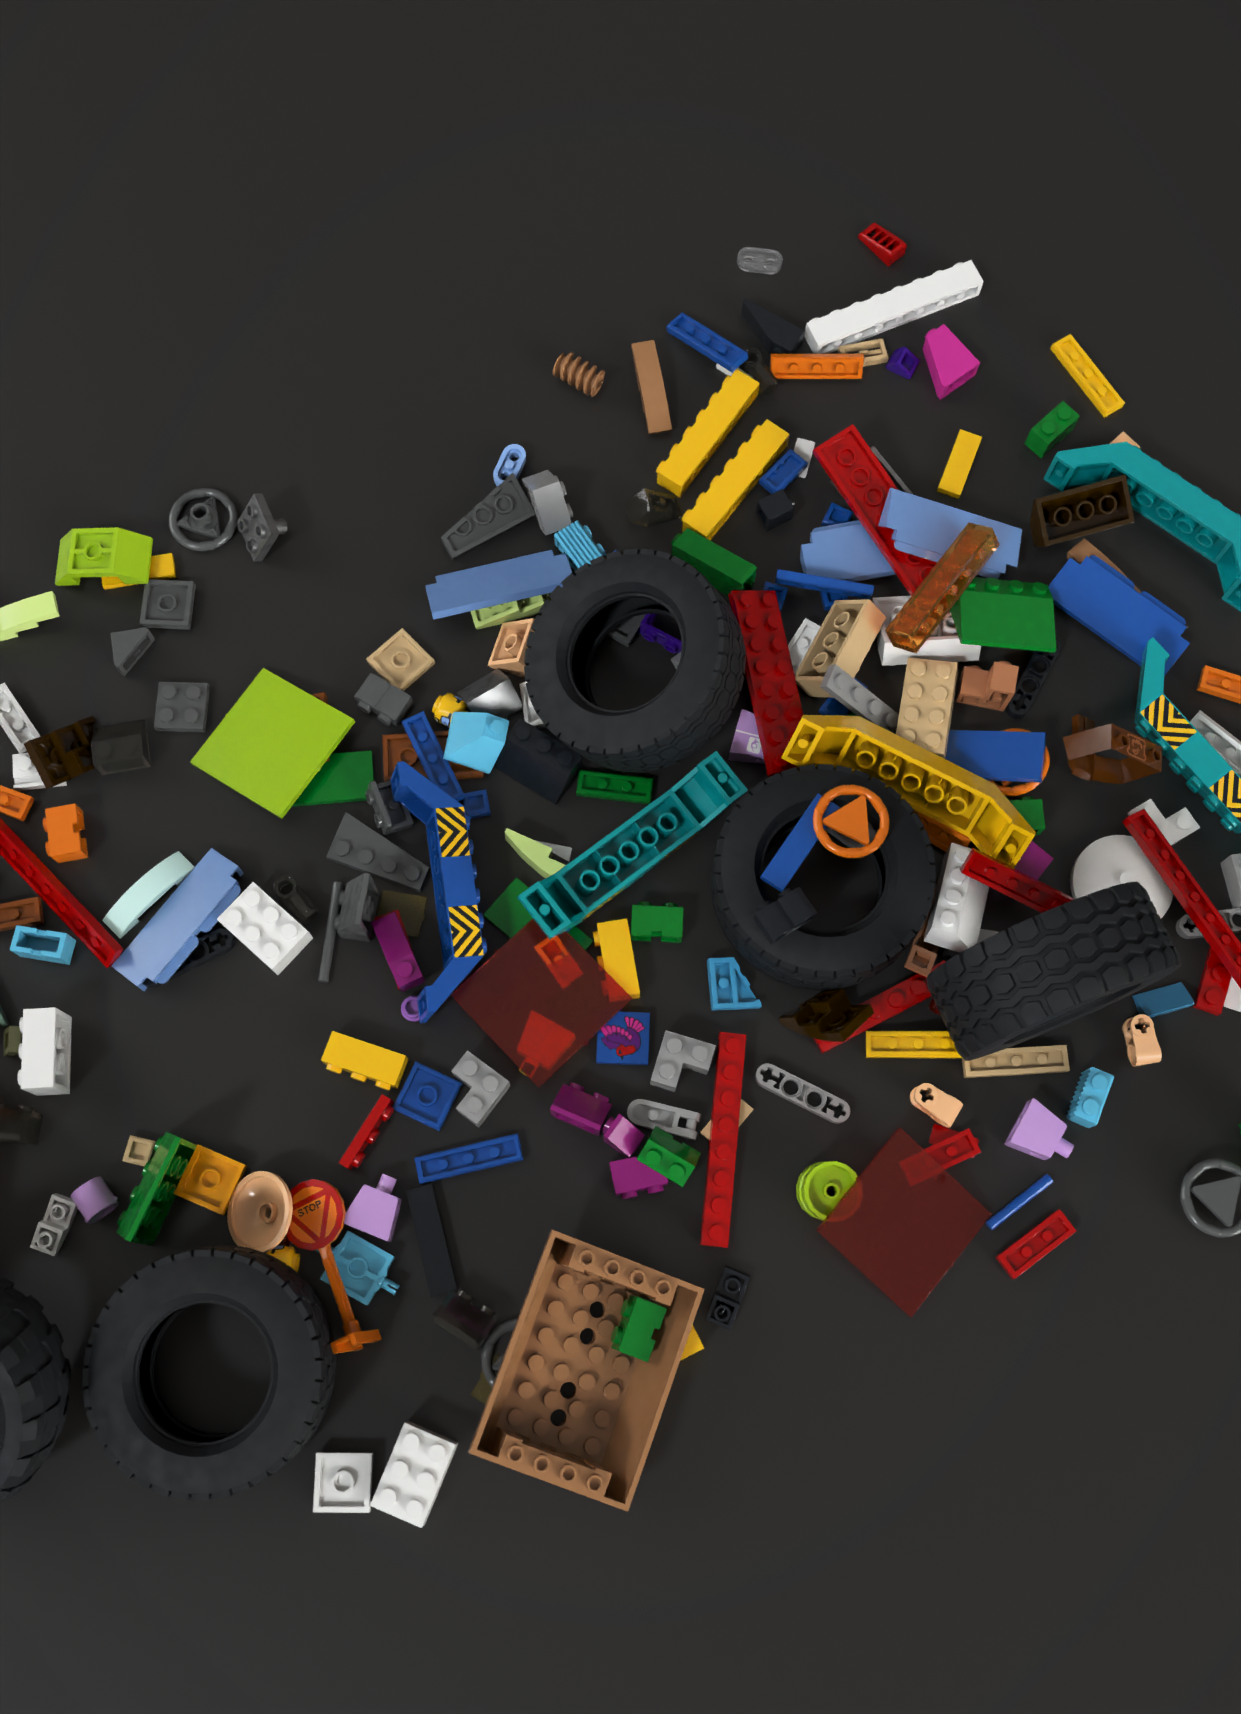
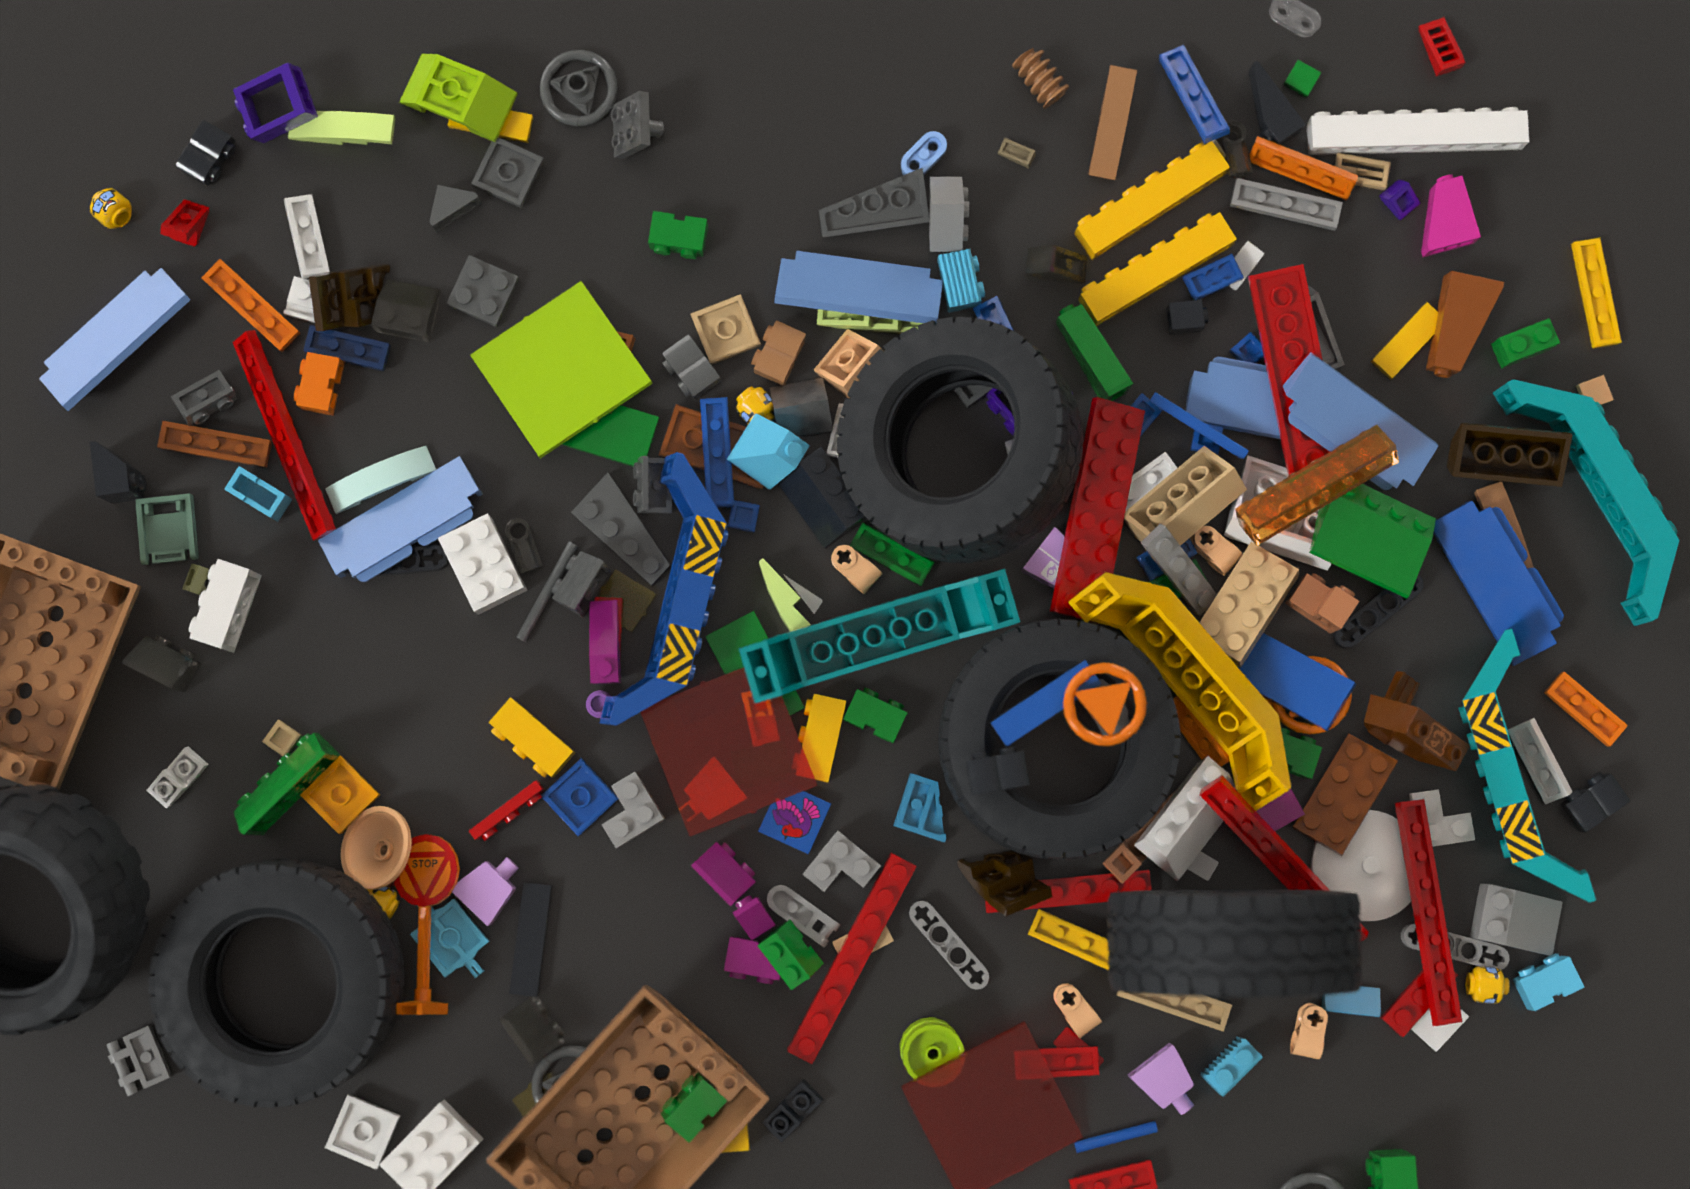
camera: 20 degrees right, 10 degrees up
(83, 794) = (348, 348): none -> dark blue plate
(94, 1200) = (223, 770): lavender piece -> none
(114, 1497) = (146, 1057): none -> light grey plate
(331, 600) = (677, 235): none -> green brick
(453, 661) = (779, 352): none -> medium nougat brick
(468, 1158) = (596, 875): blue tile -> none
(585, 439) = (1017, 153): none -> dark tan piece
(591, 808) = (859, 571): none -> light nougat piece
(785, 304) = (1302, 78): none -> green tile
(815, 397) = (1286, 204): none -> light grey plate
(882, 678) = (1218, 551): none -> light nougat piece
(992, 424) = (1462, 312): none -> dark orange slope
(1078, 832) = (1345, 794): none -> dark orange plate

